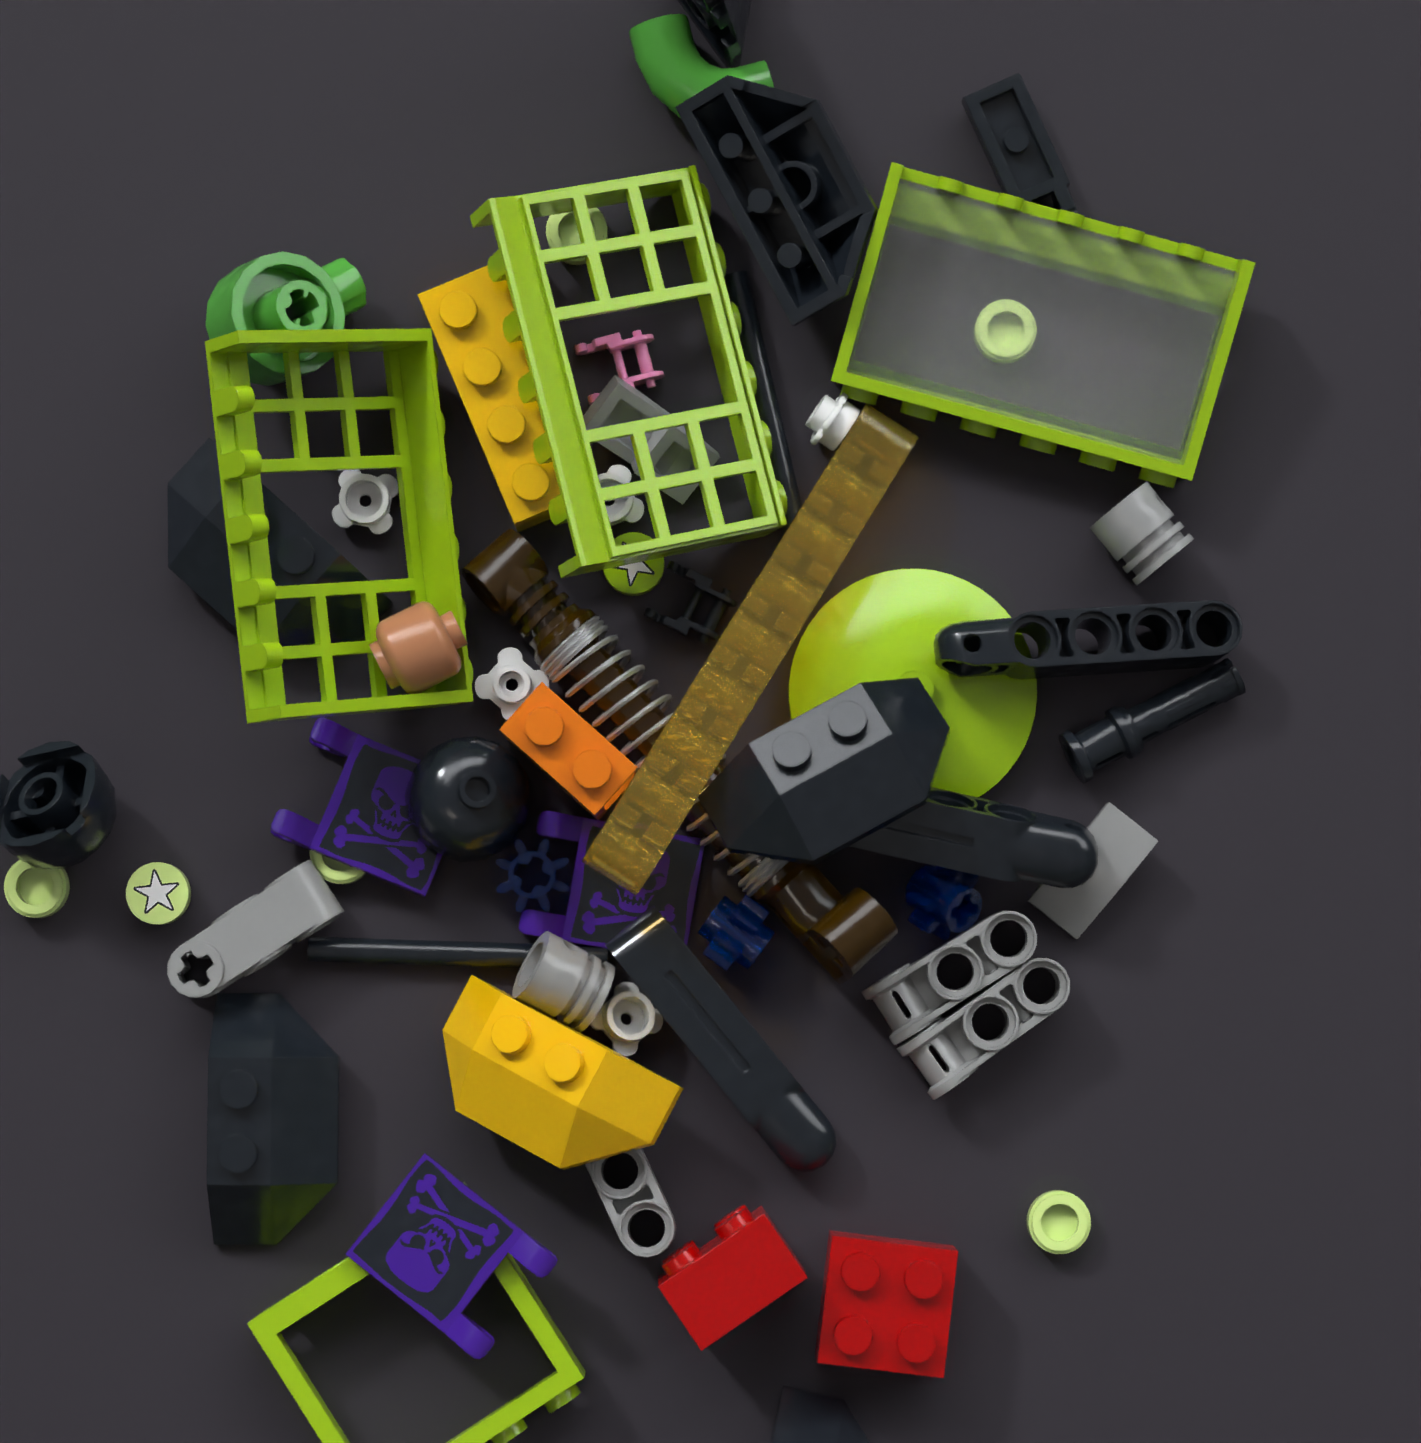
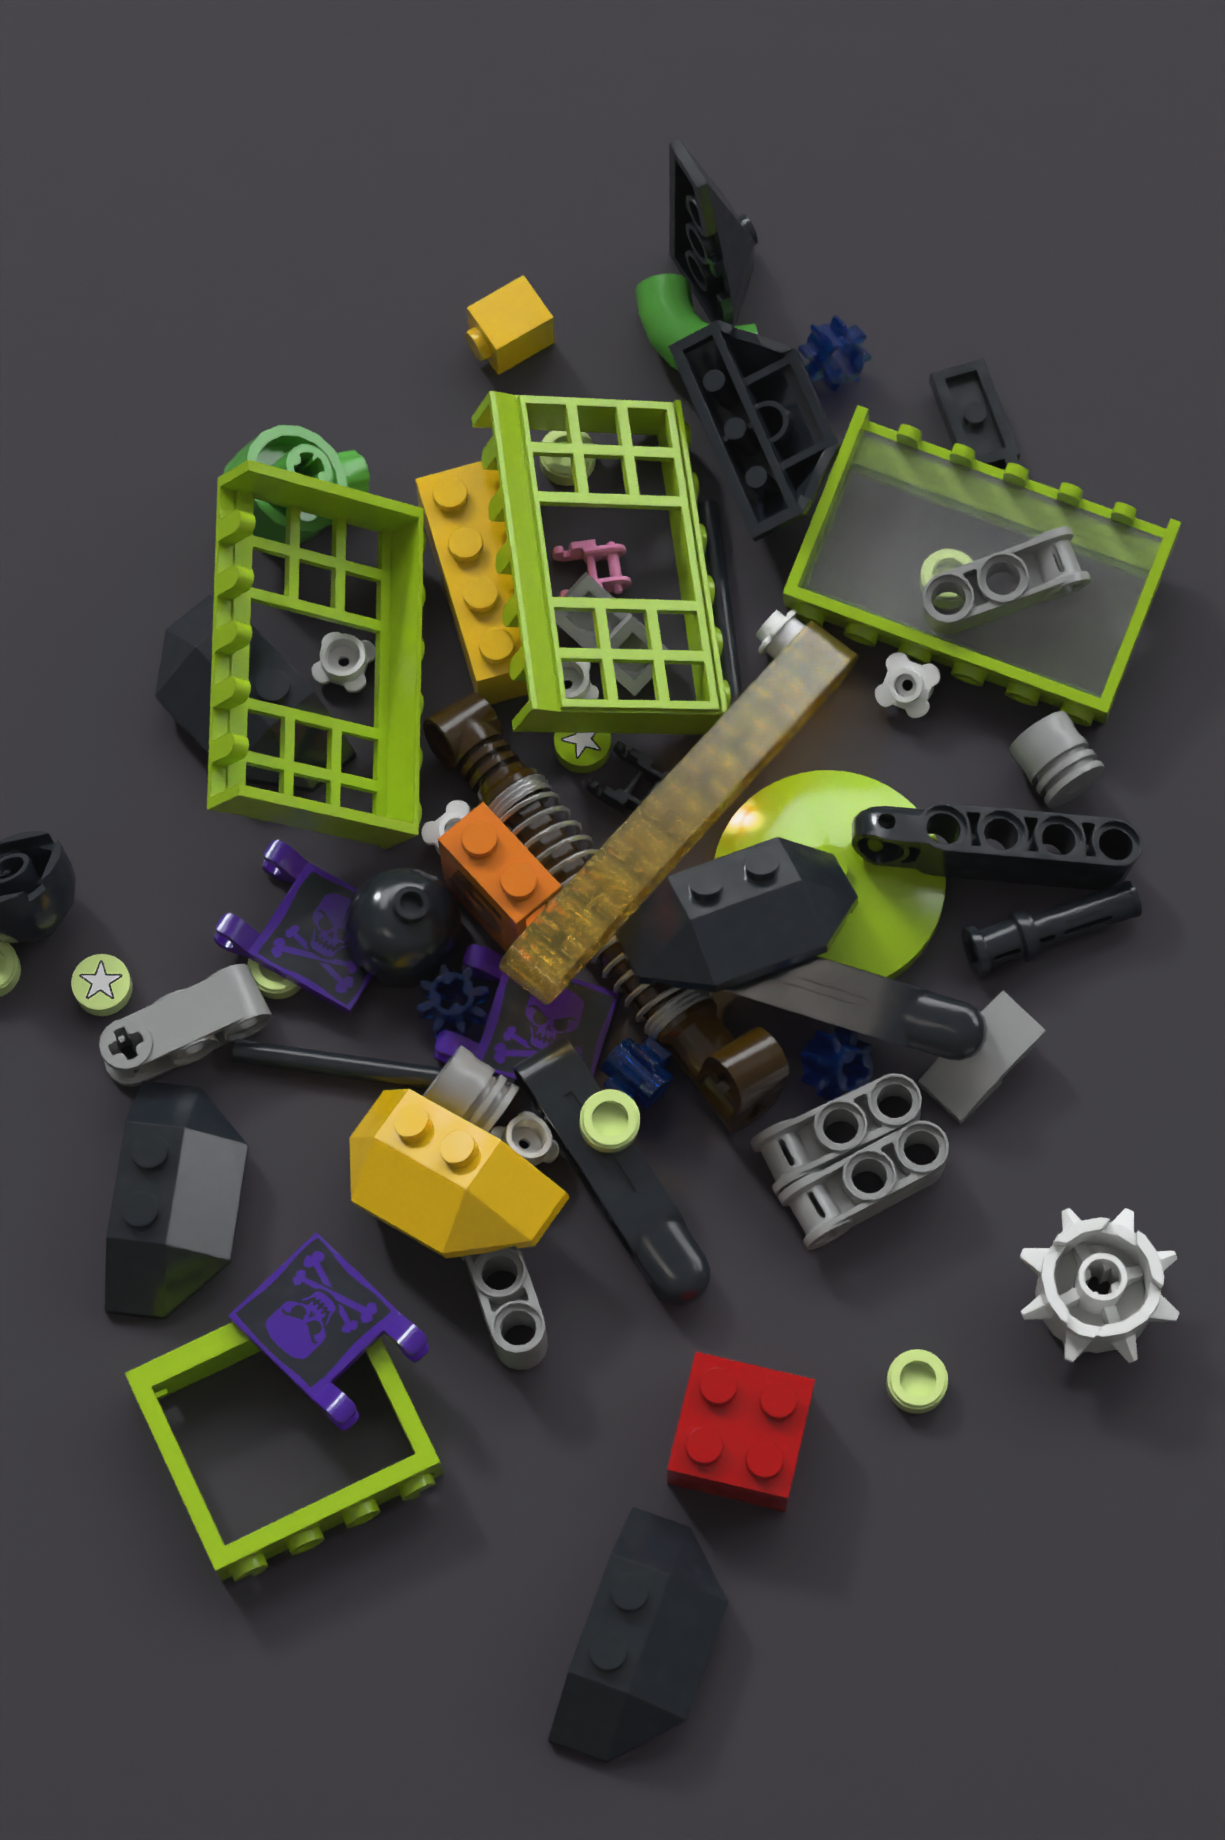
camera: 15 degrees right, 15 degrees down
(418, 647) = (374, 774): nougat head -> none
(494, 89) = (509, 325): none -> yellow brick
(715, 1000) = (609, 1121): none -> yellowish green tile
(729, 1275) = (593, 1379): red brick -> none
(856, 84) = (846, 363): none -> clear blue gear
(971, 446) = (923, 679): none -> white plate
(1103, 338) = (1028, 562): none -> light grey piece
(1272, 1120) = (1113, 1255): none -> white brick

